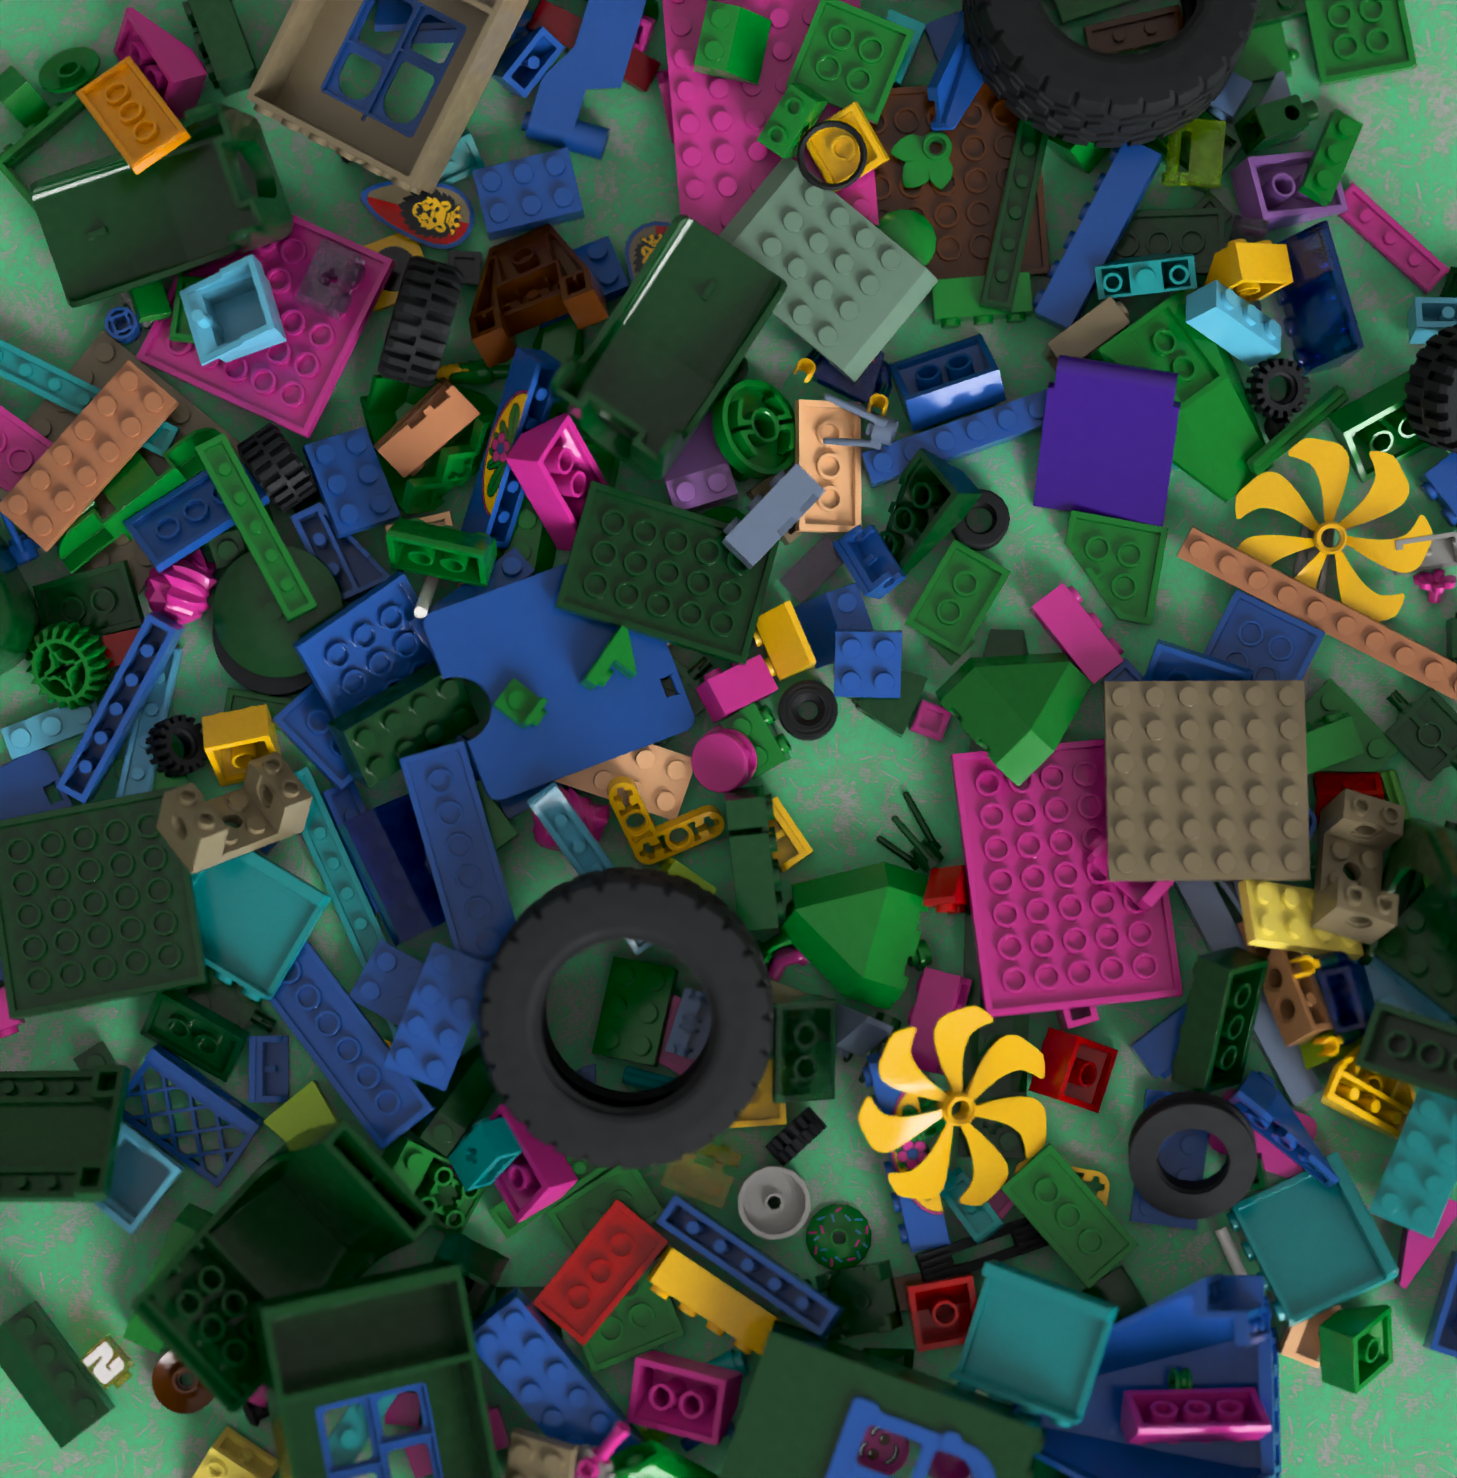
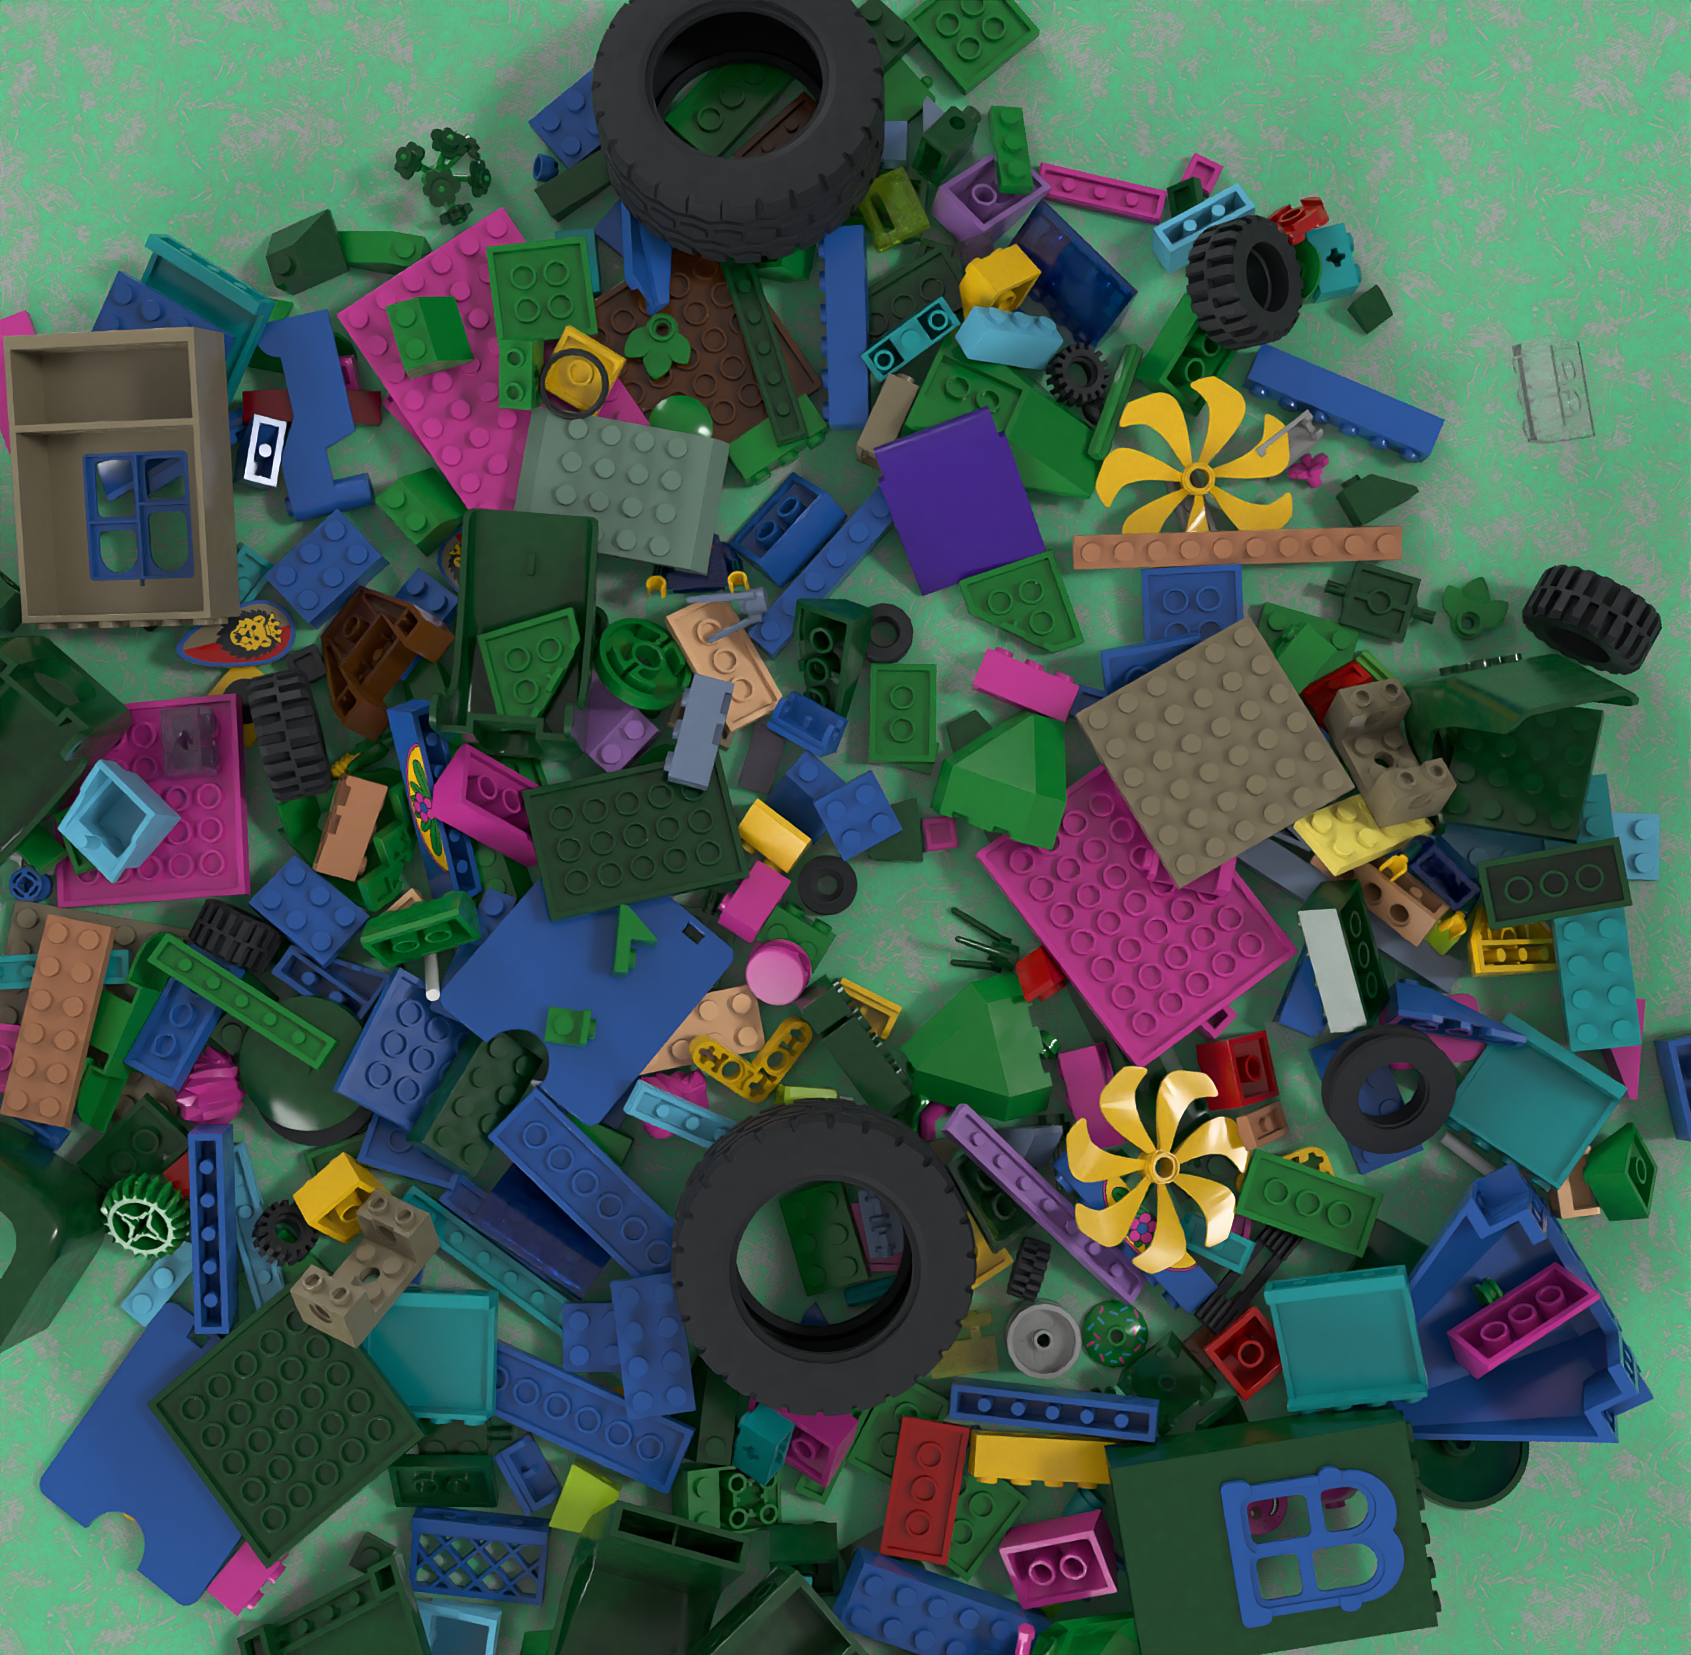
camera: 30 degrees left, 0 degrees up
(642, 188) = (424, 508): none -> green slope
(660, 373) = (530, 661): none -> green plate
(839, 1085) = (1041, 1202): none -> medium lavender plate
(1067, 1127) = (1262, 1125): none -> nougat plate

